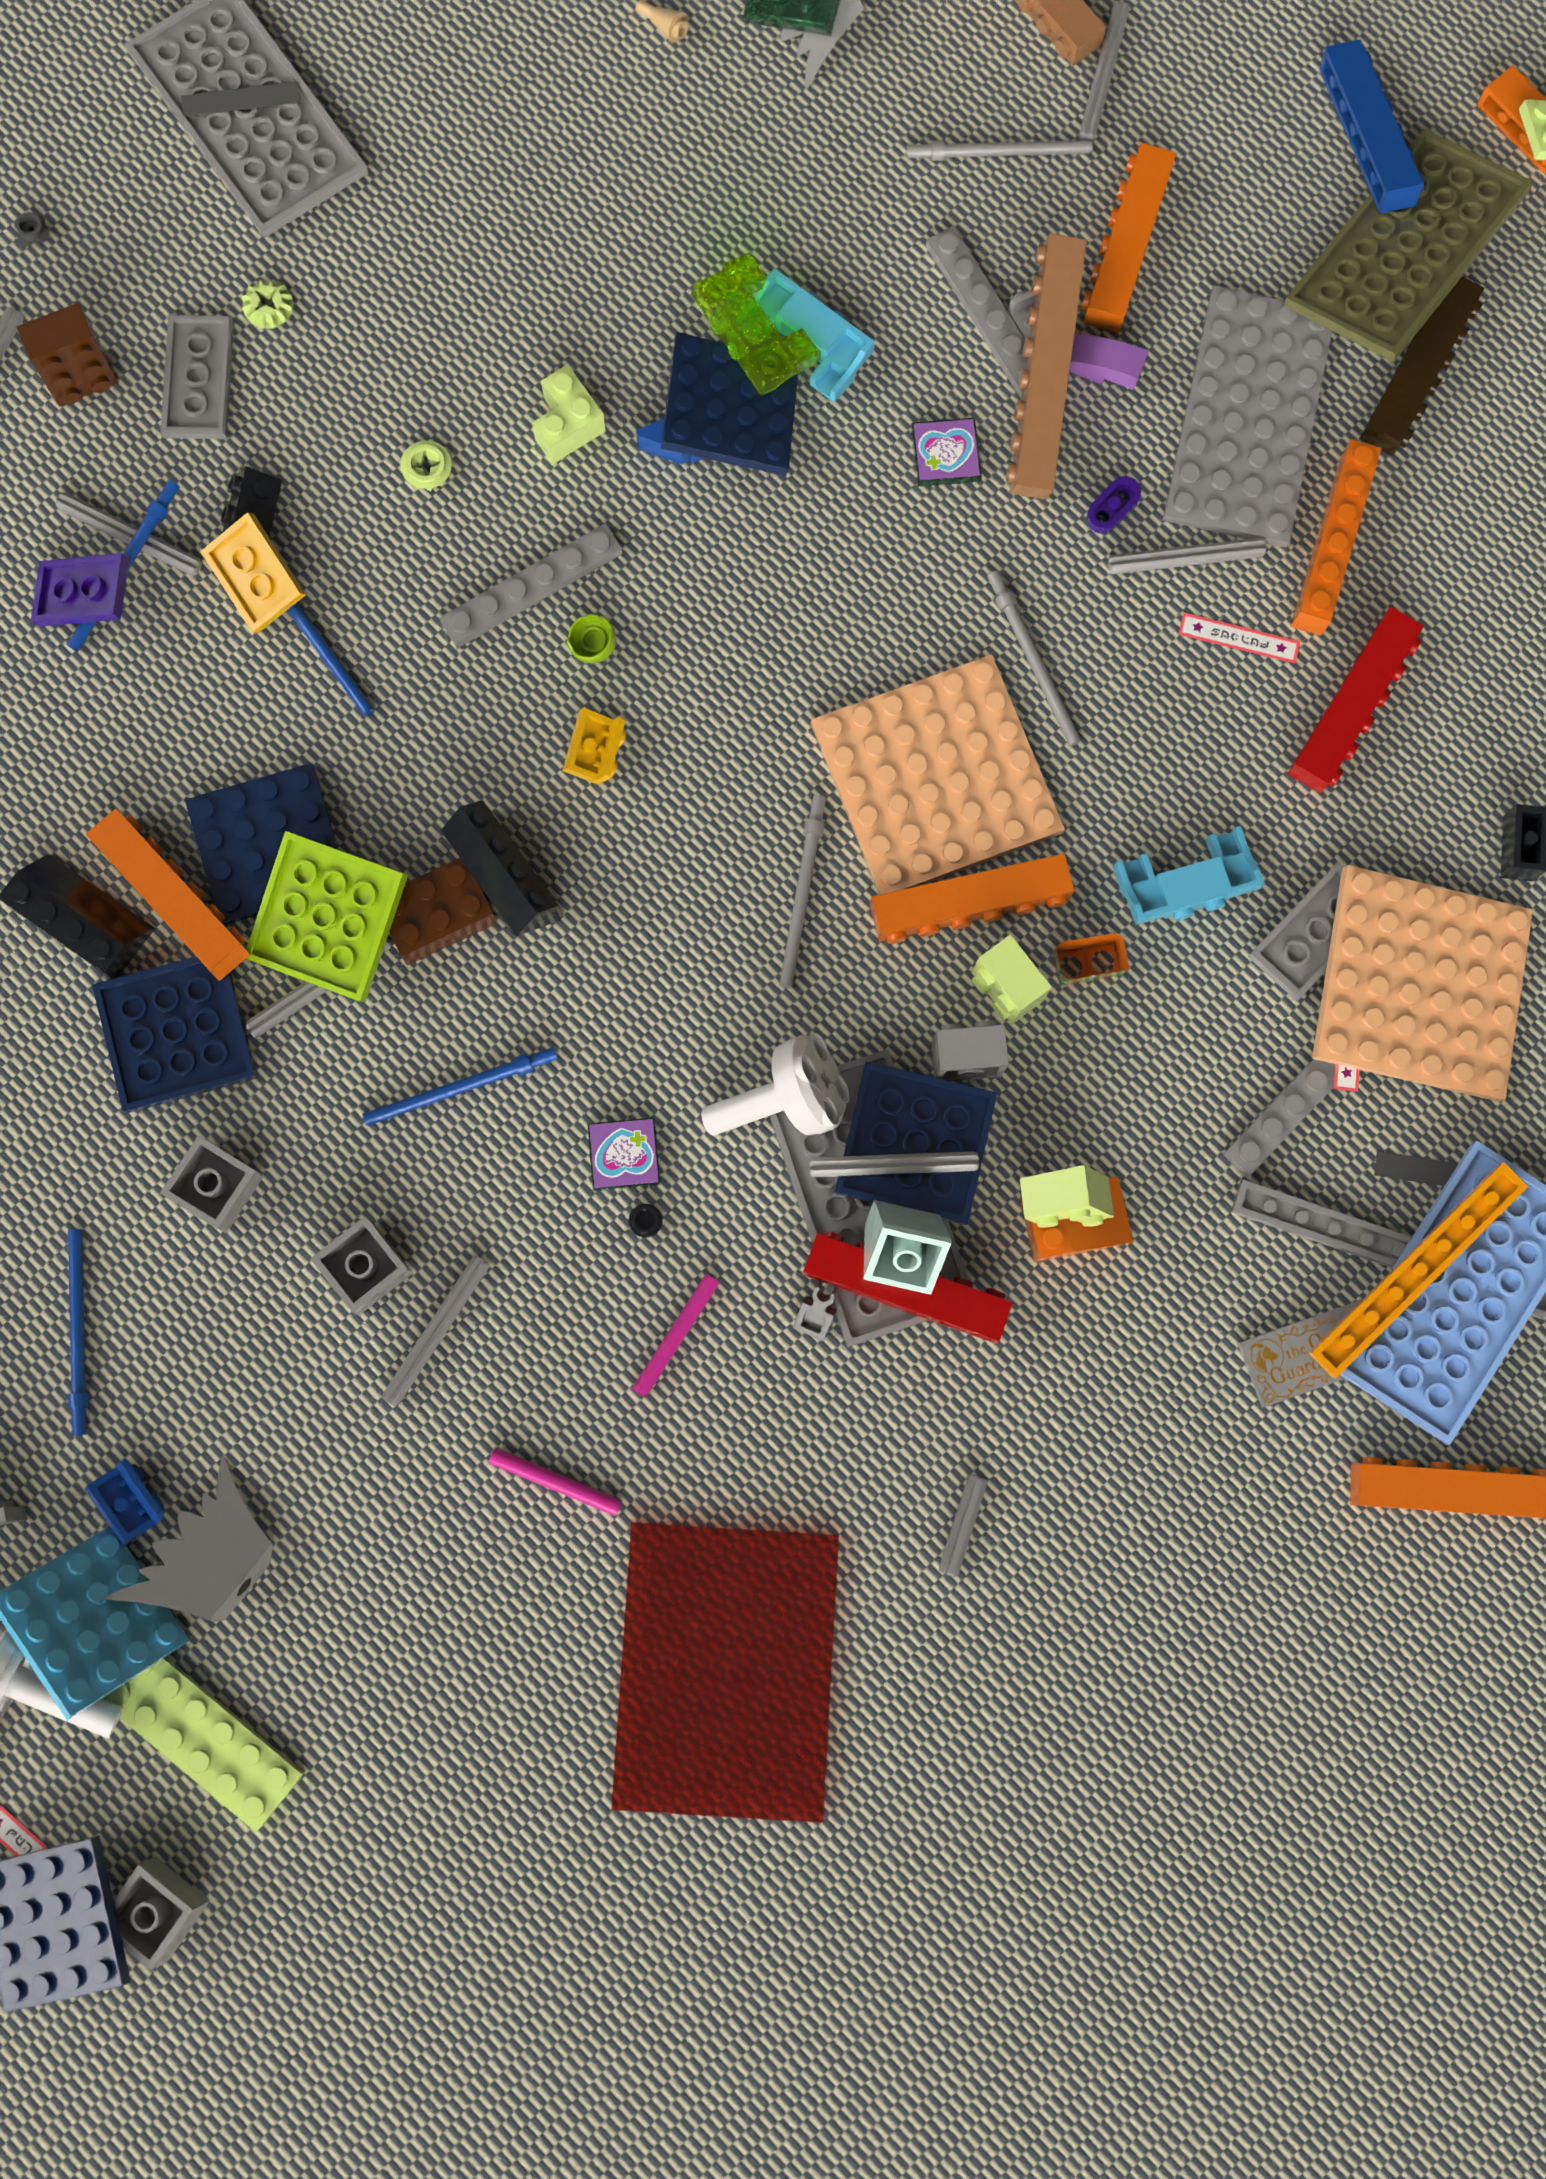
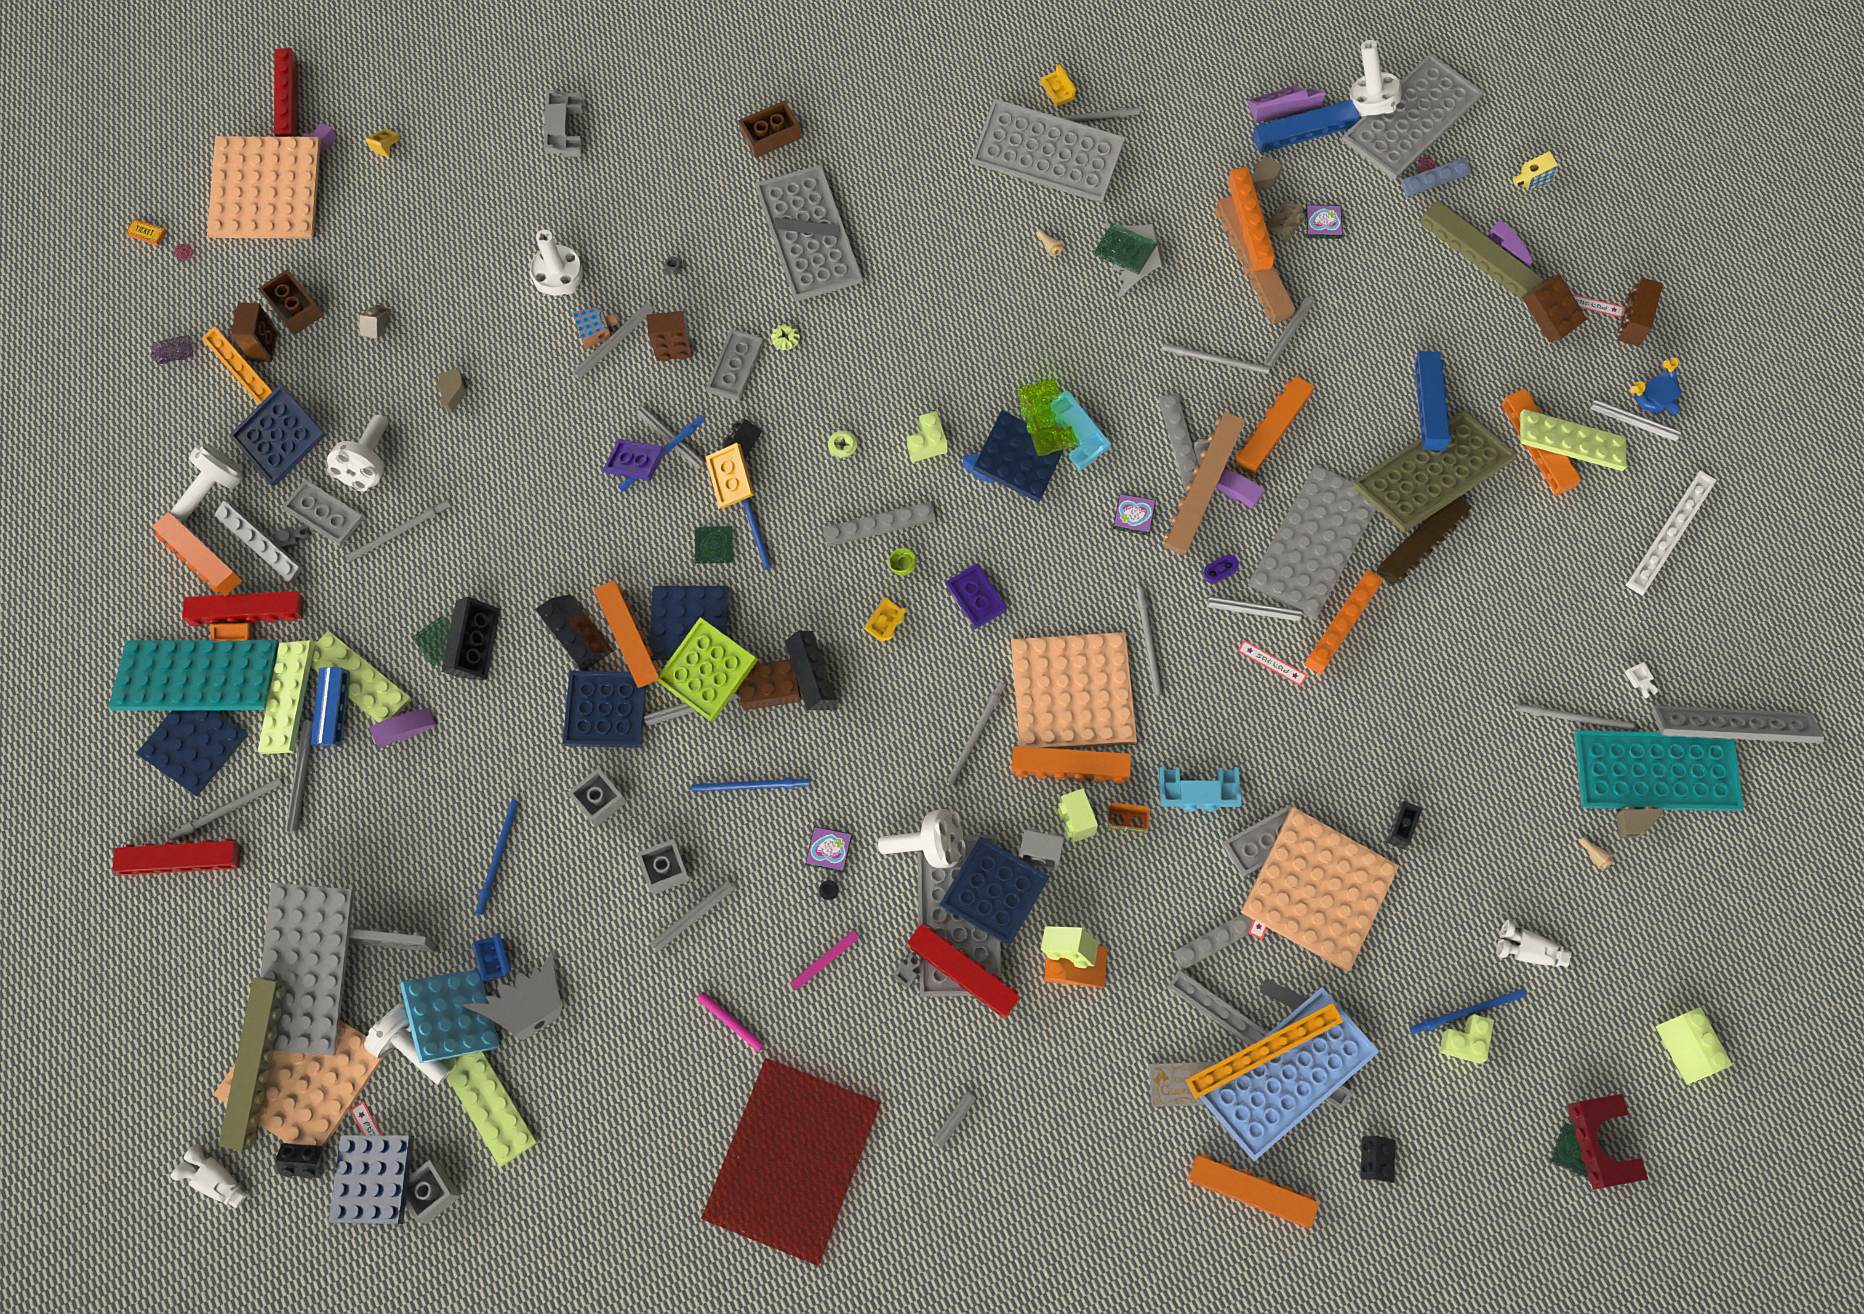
camera: 25 degrees right, 10 degrees down
(264, 699) = (713, 545): none -> clear green tile
(731, 663) = (976, 596): none -> dark purple plate
(893, 1164) = (977, 898): light grey axle -> none
(904, 1247) = (966, 945): light aqua slope -> none
(1356, 699) = (1328, 716): red brick -> none

